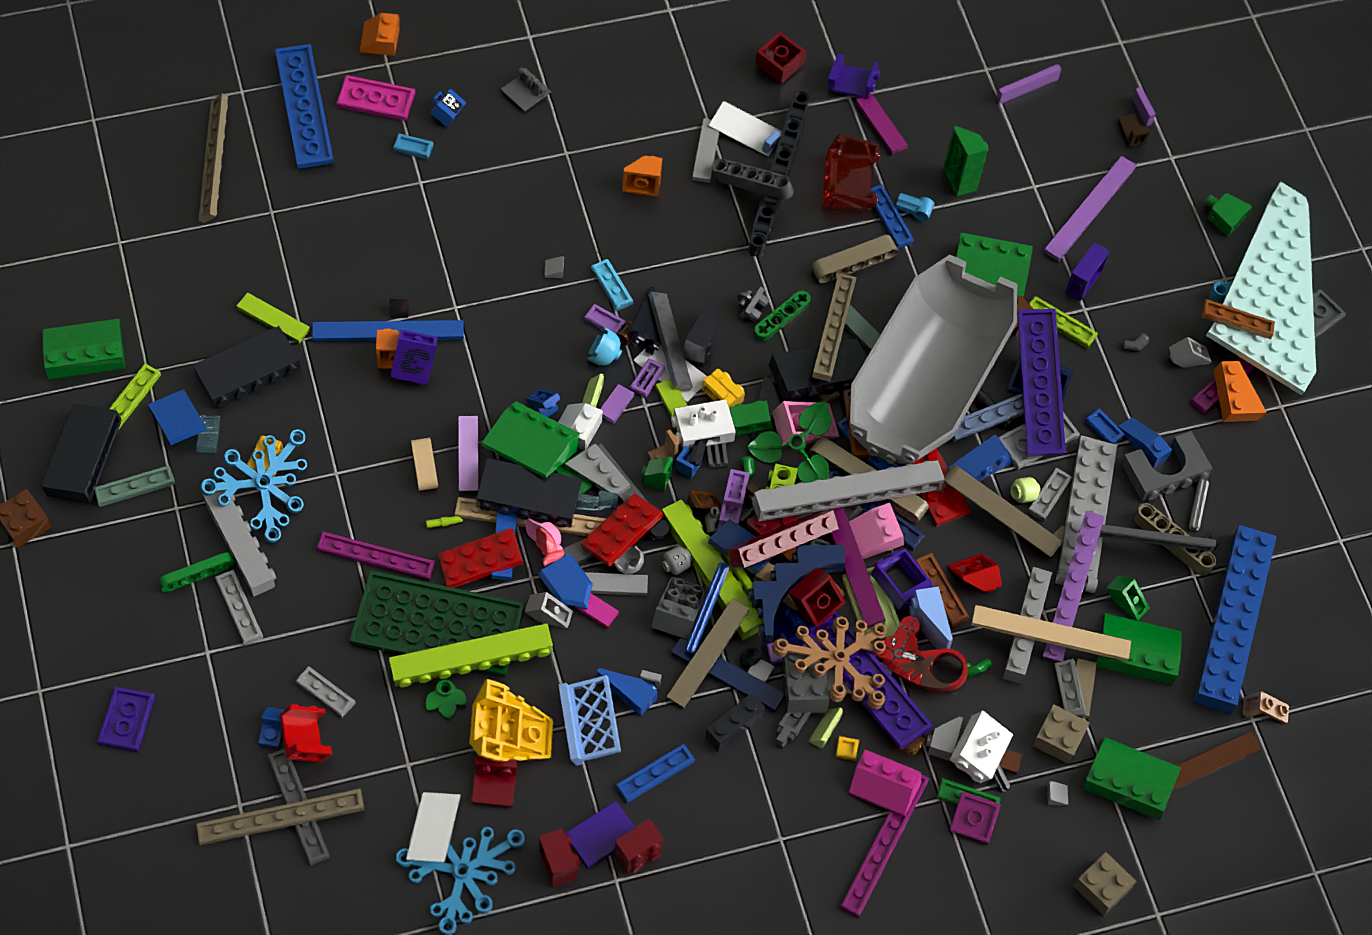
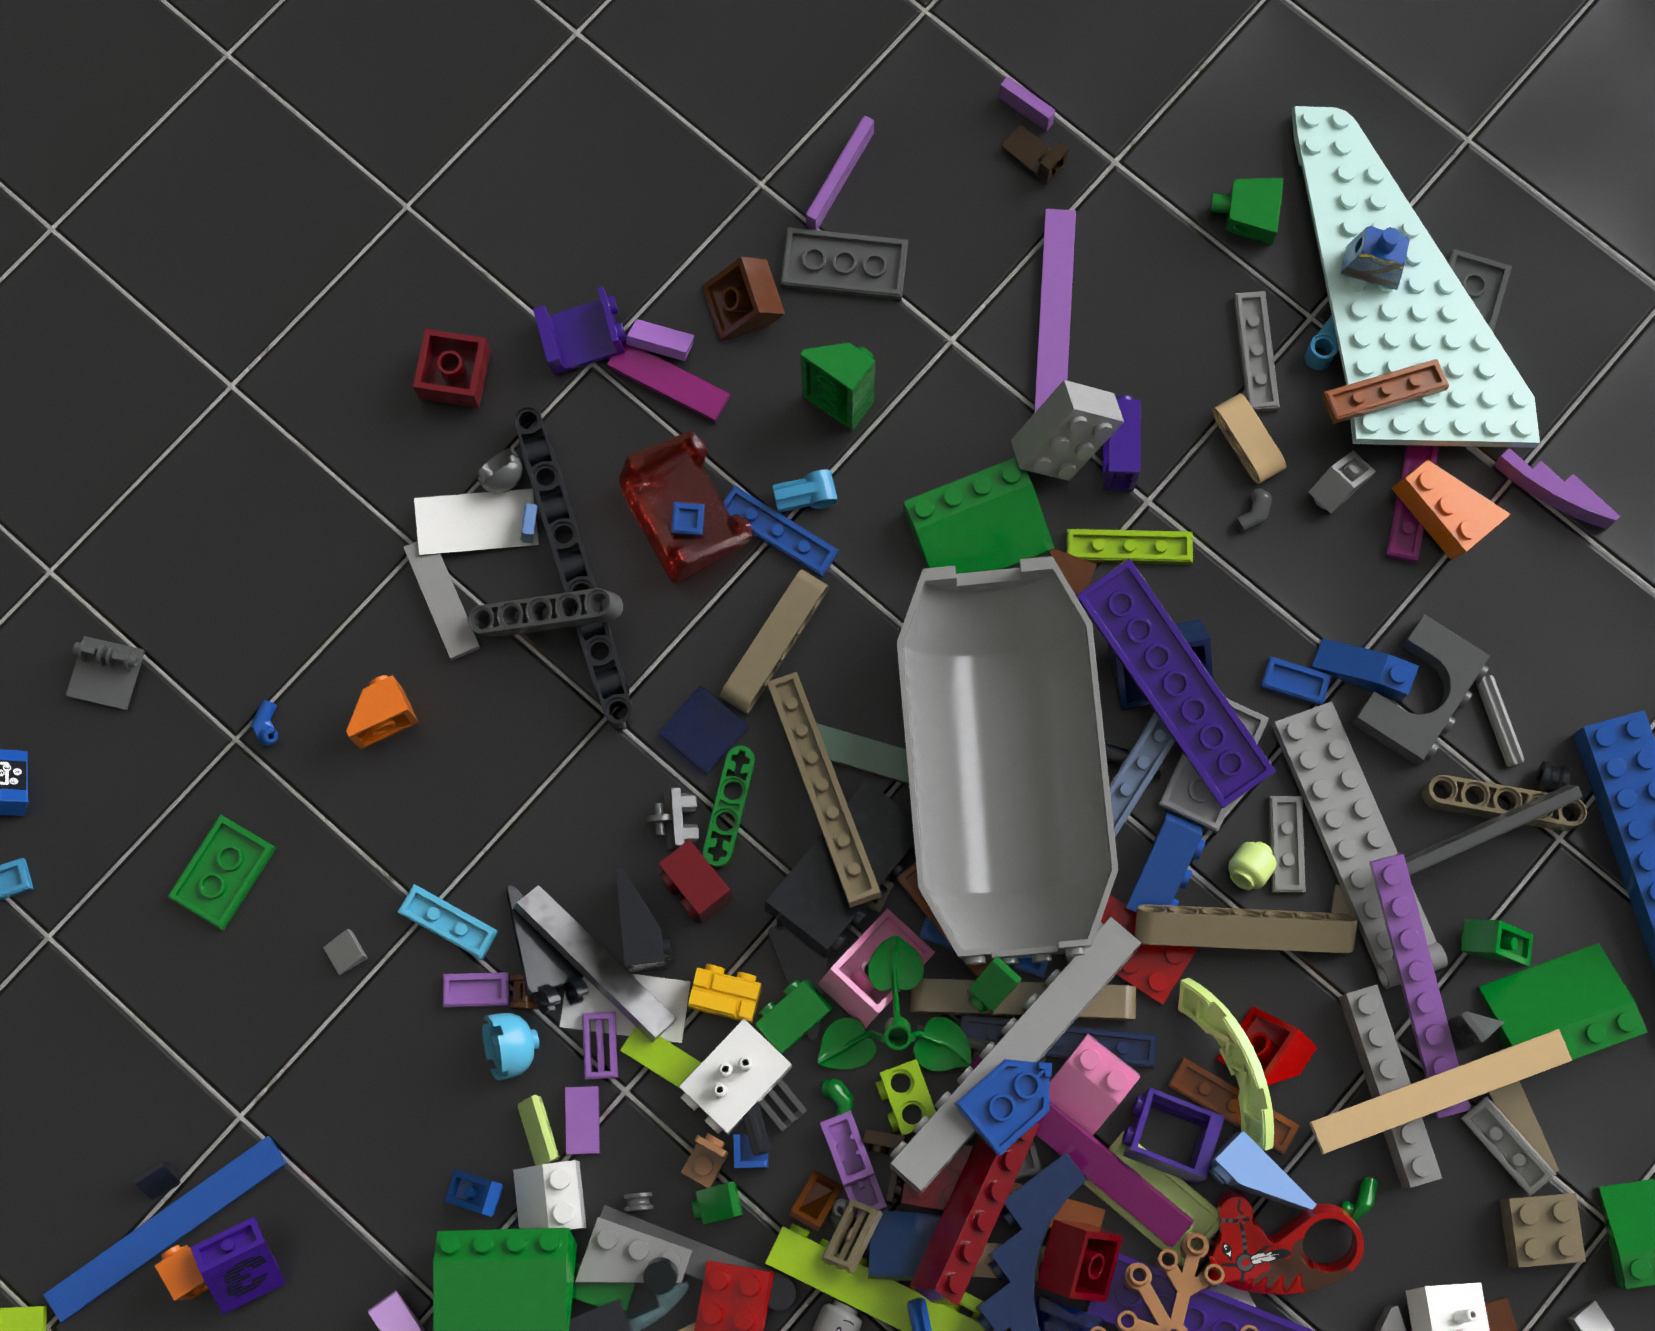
camera: 25 degrees left, 15 degrees up
(520, 202) = (222, 872): none -> green tile
(583, 153) = (262, 723): none -> blue arm
(608, 482) = (660, 1275): none -> black tile
(618, 451) = (638, 1201): none -> dark grey bush
(712, 521) = (866, 1221): none -> dark tan tile
(743, 332) = (696, 882): none -> dark red brick
(773, 115) = (501, 472): none -> dark grey hair
(793, 277) = (703, 730): none -> clear blue tile
(830, 500) = (1007, 1102): none -> blue tile
(849, 182) = (687, 519): none -> blue tile
(858, 454) = (993, 986): none -> green slope
(889, 103) = (660, 339): none -> medium lavender tile
(943, 108) = (743, 298): none -> reddish brown slope
(959, 541) = (1239, 1057): none -> yellowish green tile
(1003, 124) = (844, 263): none -> dark grey tile
(1063, 244) = (1067, 430): none -> light grey brick
(1089, 620) = (1473, 1028): none -> dark grey slope
(1155, 309) = (1249, 438): none -> tan beam
(1186, 276) = (1256, 351): none -> light grey tile
(1275, 260) = (1376, 256): none -> blue torso
(1302, 425) = (1569, 496): none -> medium lavender slope

